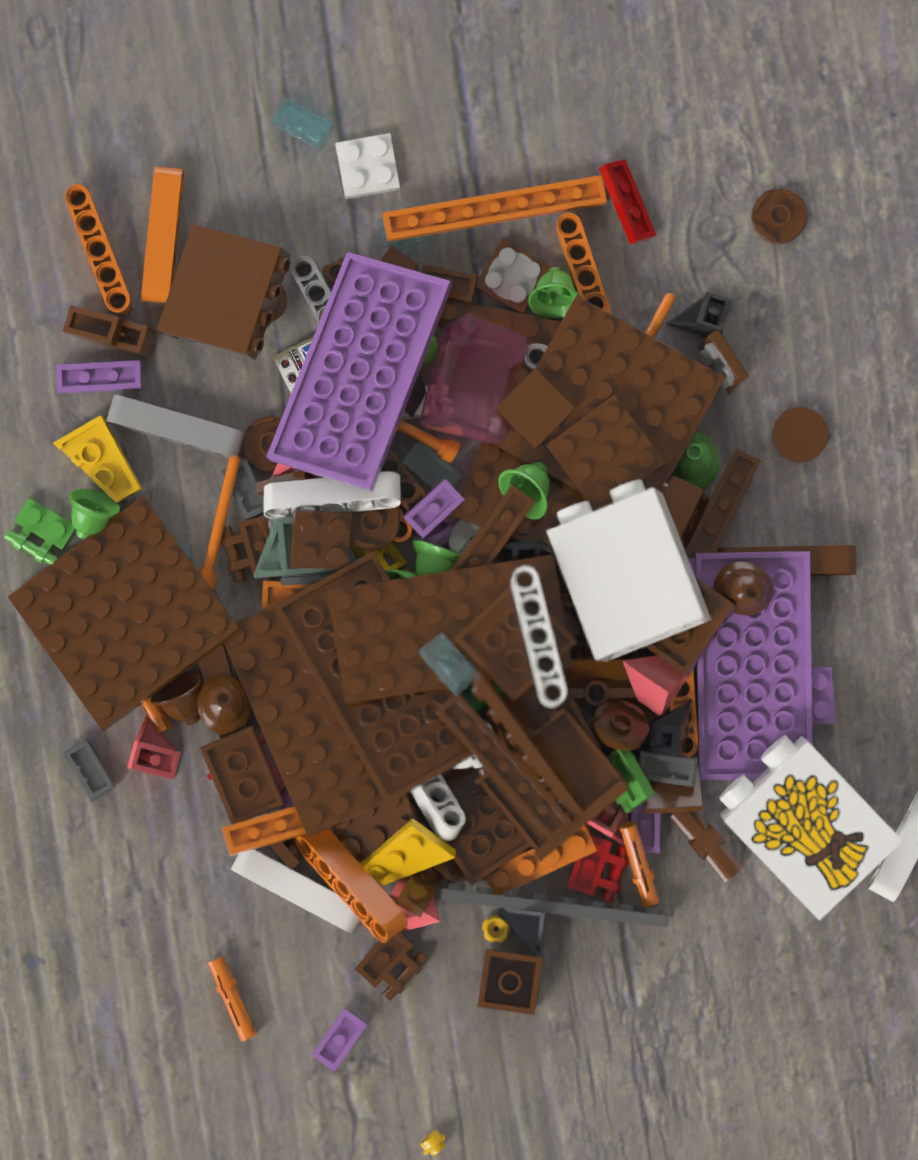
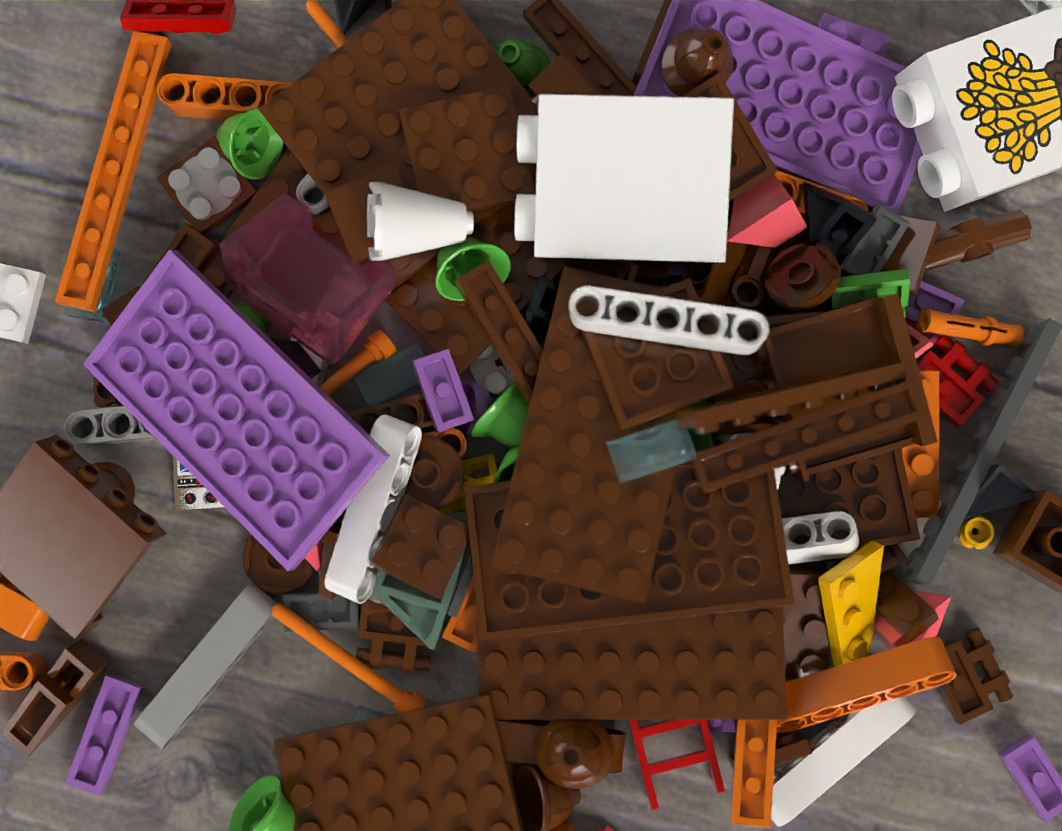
camera: 70 degrees left, 0 degrees up
(100, 456) = (202, 773): yellow wing -> none
(242, 775) = (672, 766): reddish brown tile -> none
(537, 438) = (412, 221): none -> white cone

